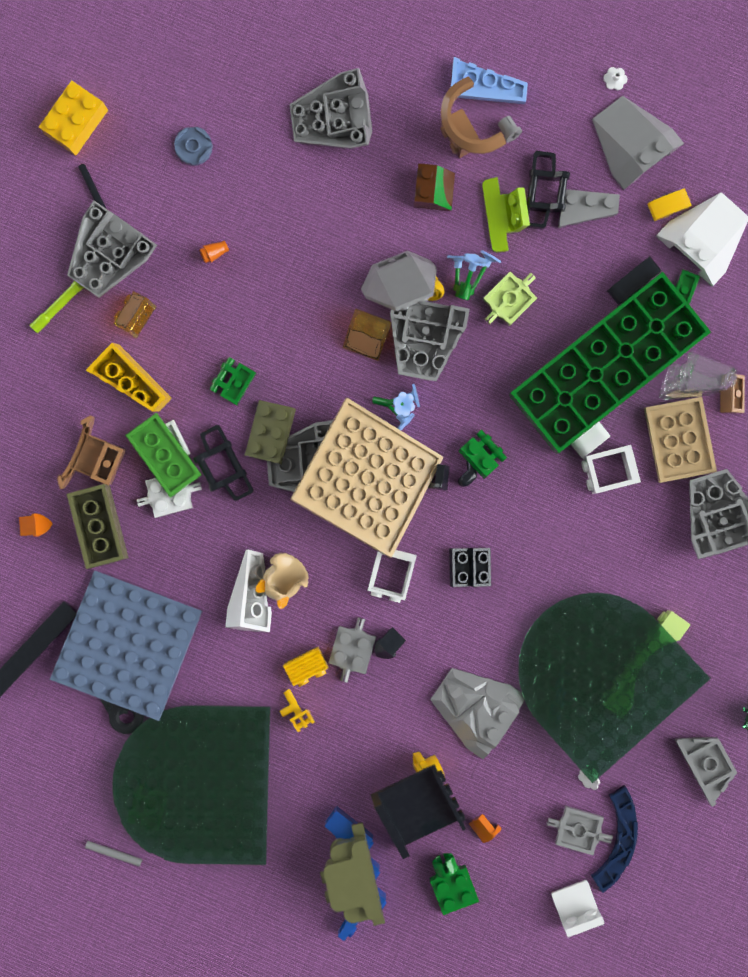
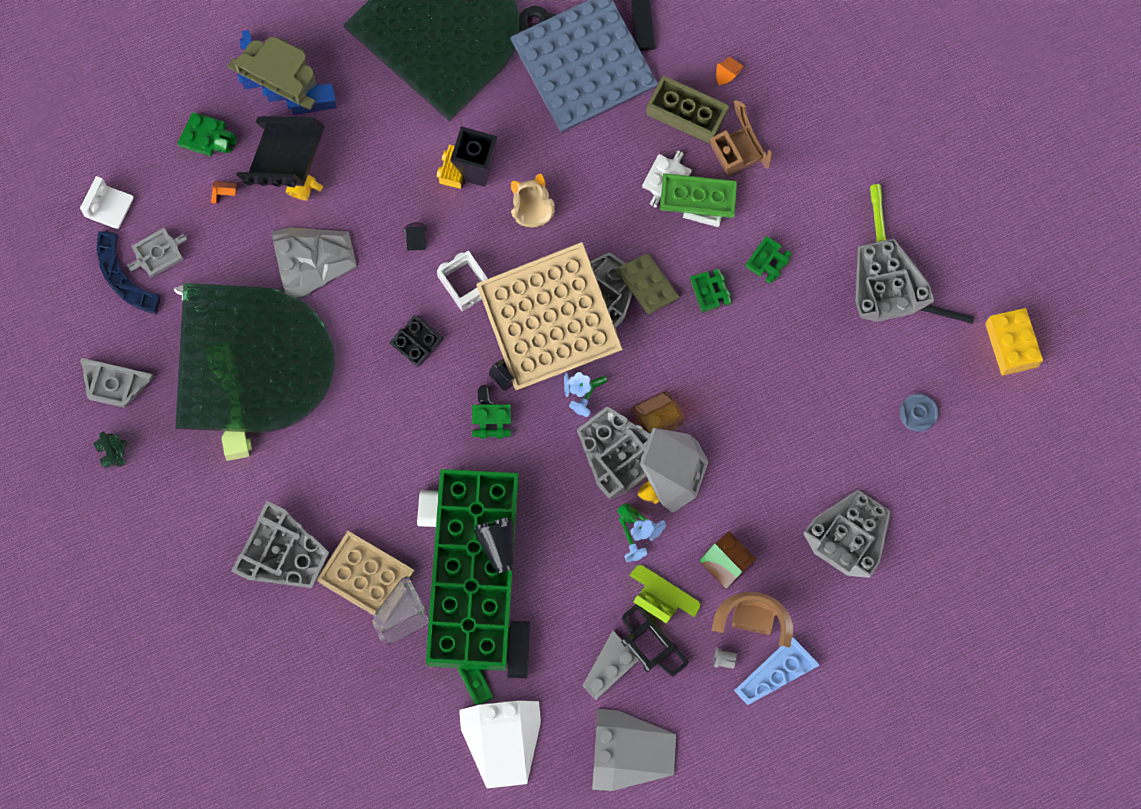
camera: 130 degrees right, 15 degrees down
(127, 376) = (776, 219): yellow wedge -> none
(134, 314) = (822, 261): clear yellow slope -> none
(168, 364) = (764, 255): none -> green plate
(213, 251) = (822, 357): orange cone -> none
(226, 446) = (665, 246): black bar -> none
(246, 607) = (535, 159): white wedge -> none
(287, 656) = (474, 155): none -> black slope
(294, 707) = (433, 135): yellow arm -> none
(352, 649) = (435, 209): light grey plate -> none
(509, 298) = (590, 543): yellowish green plate -> none
(581, 356) = (497, 543): none -> black cone
(613, 81) = (688, 786): white plant -> none
(629, 464) = (382, 520): white window -> none
(669, 204) = (553, 731): yellow slope -> none
(733, 398) = (362, 649): medium nougat slope -> none

